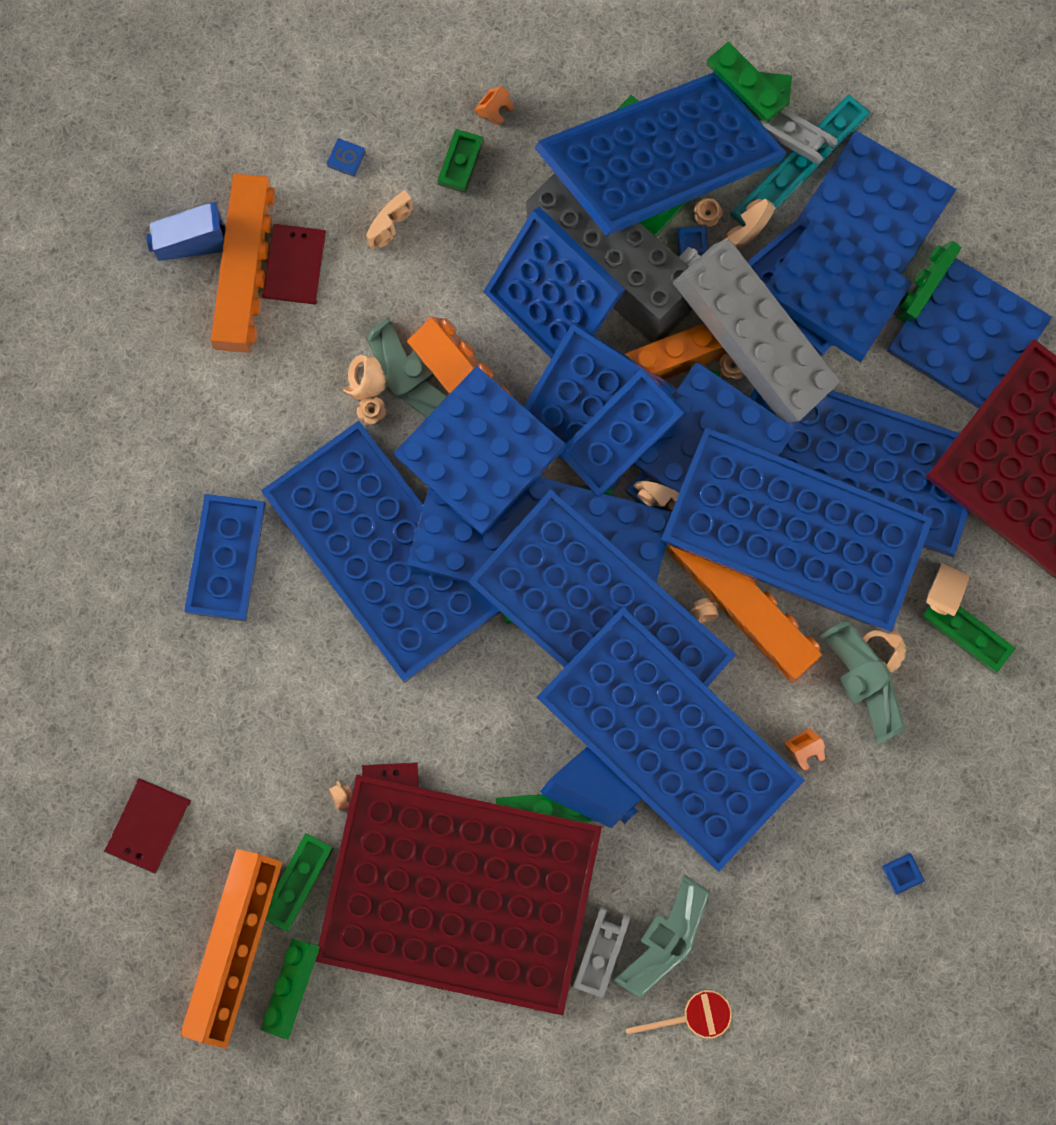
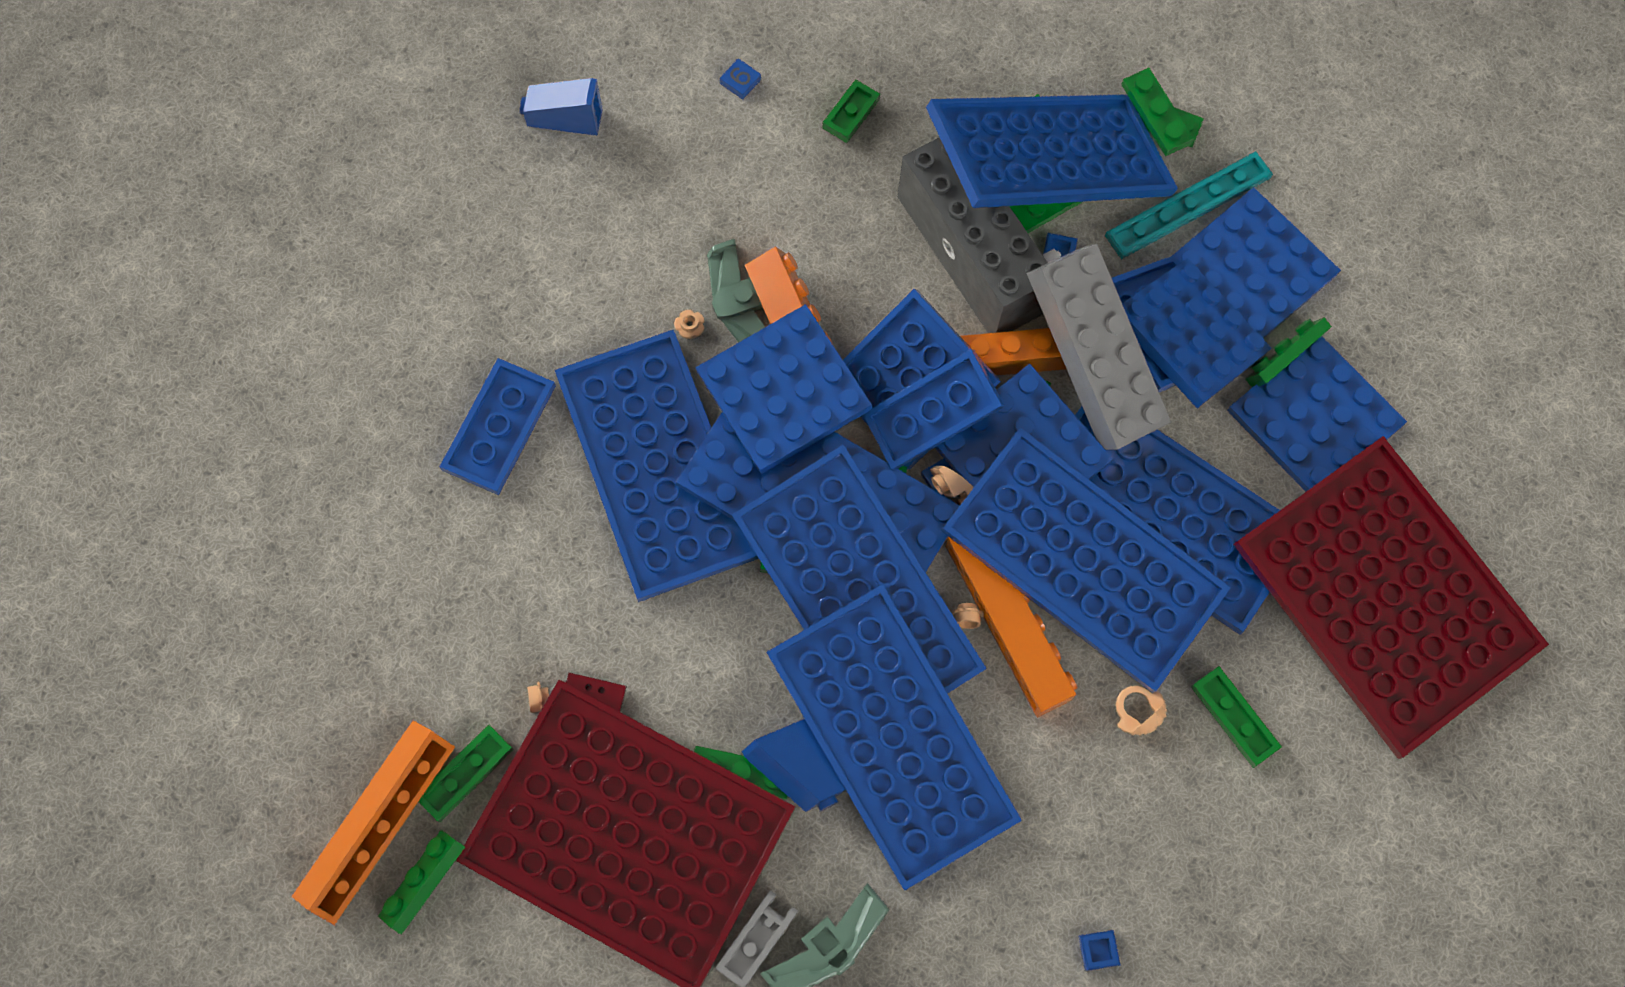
camera: 10 degrees right, 5 degrees down
(147, 826) = (332, 671): dark red container -> none
(242, 262) = (606, 149): orange brick -> none
(294, 264) = (658, 164): dark red container -> none
(372, 382) = (698, 296): light nougat piece -> none
(382, 228) = (754, 152): light nougat slope -> none
(491, 103) = (898, 65): orange tile -> none
(551, 284) = (905, 245): blue plate -> none
(707, 205) = (1083, 218): light nougat plate -> none
(727, 370) = (1058, 382): light nougat plate -> none
(755, 218) = (1130, 242): light nougat slope -> none
(799, 135) = (1196, 175): light grey hinge -> none
(804, 746) = (1031, 785): orange tile -> none
(867, 680) = (1116, 735): sand green plate -> none
(947, 590) = (1225, 666): light nougat slope -> none

